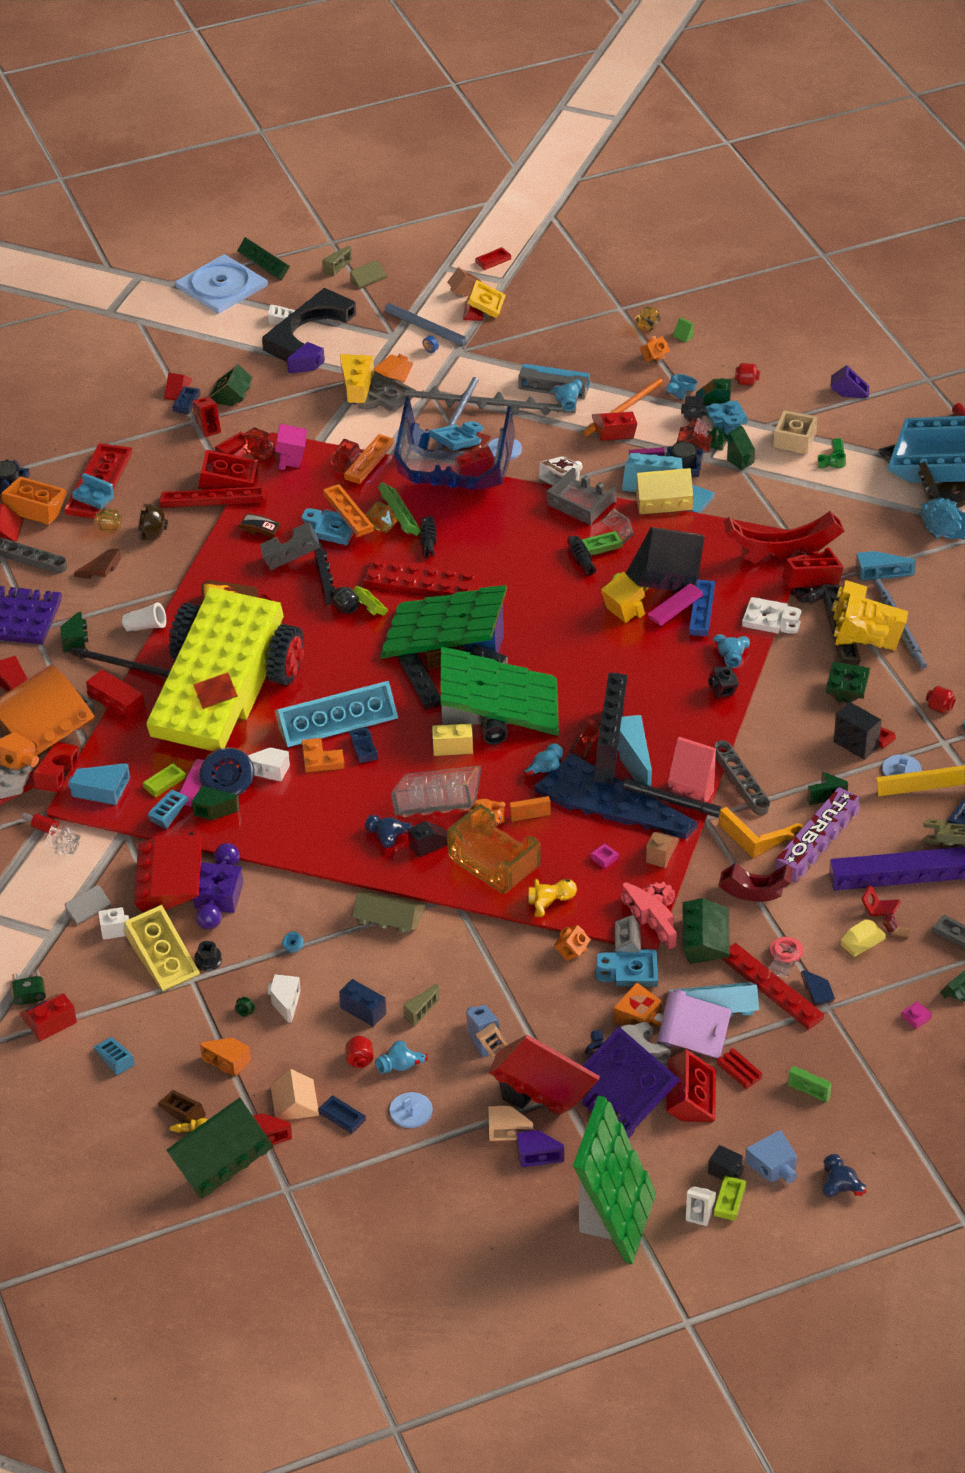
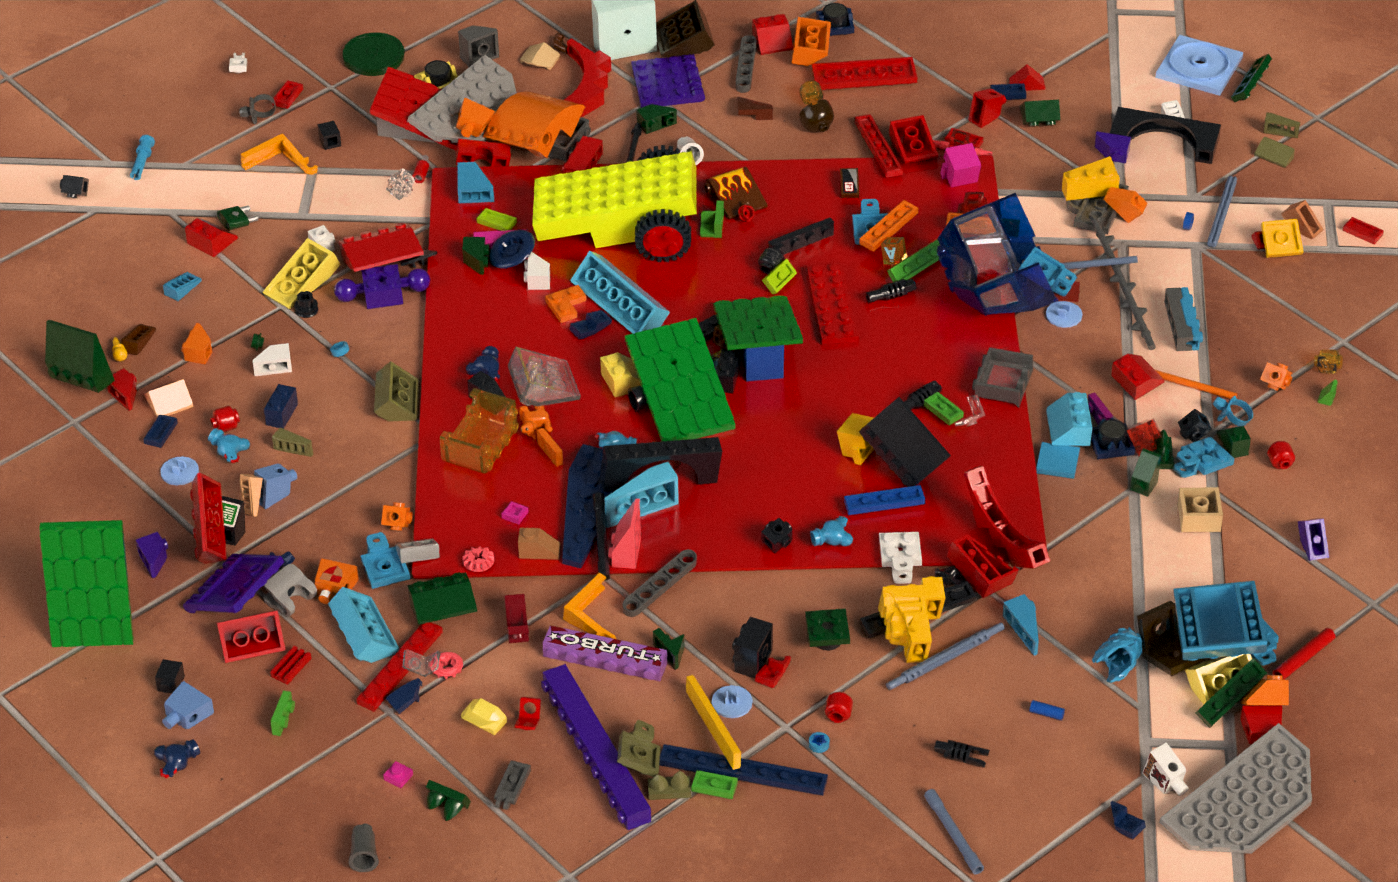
camera: 70 degrees right, 0 degrees up
(87, 904) = (339, 222): light grey slope -> none
(94, 491) = (837, 72): dark azure bracket -> none
(164, 821) = (457, 229): dark azure slope -> none
(215, 690) = (579, 199): clear red window -> none
(302, 542) = (815, 203): dark grey arch -> none
(506, 1122) = (175, 527): light nougat slope -> none
(544, 894) = (442, 481): yellow animal -> none
(554, 469) = (1043, 355): white torso -> none
(567, 394) = (1157, 329): dark azure animal -> none
(651, 911) = (449, 557): coral slope -> none
(664, 491) = (1036, 430): light yellow slope -> none
(675, 604) = (875, 478): dark pink tile -> none
(691, 1024) = (316, 614): lavender door -> none
(700, 1205) = (116, 666): white slope -> none
(730, 1198) = (134, 689): lime plate -> none
(837, 458) = (1186, 556): green bar -> none
(893, 928) = (503, 738): arm -> none

